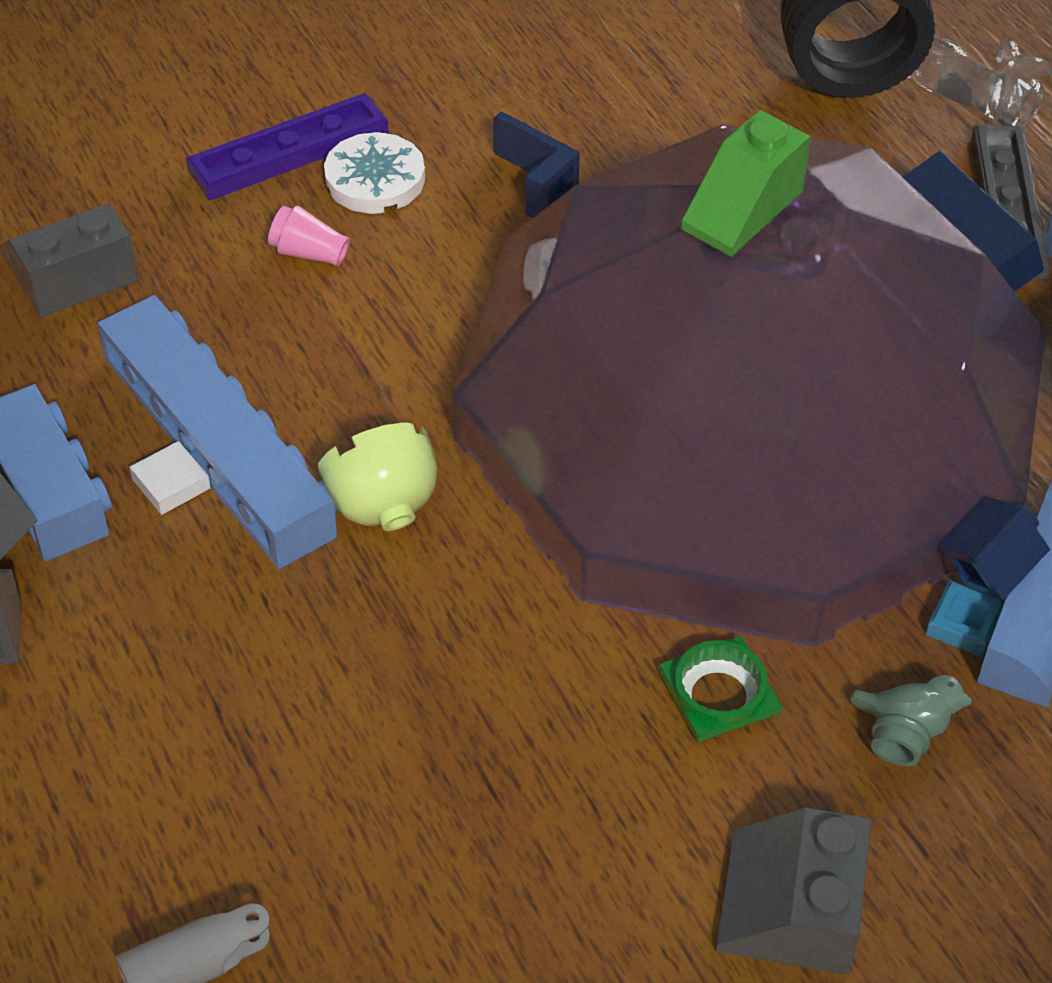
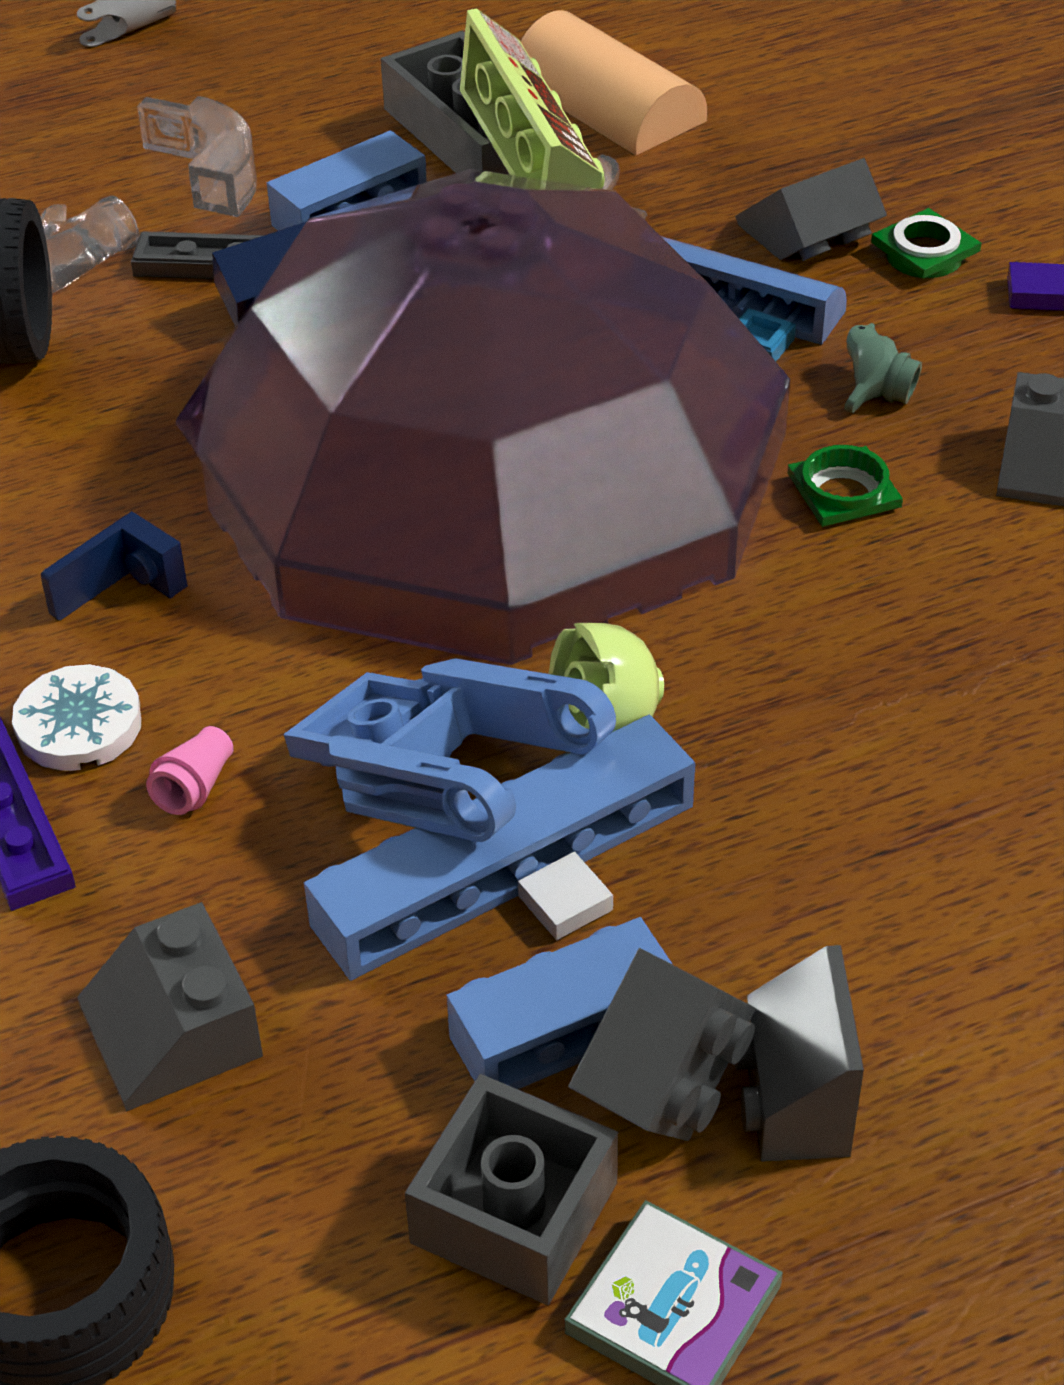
camera: 85 degrees left, 5 degrees down
(320, 335) = (398, 734): none -> medium blue plate
(748, 183) = (478, 202): bright green slope -> none
(994, 546) = (729, 272): dark blue brick -> none

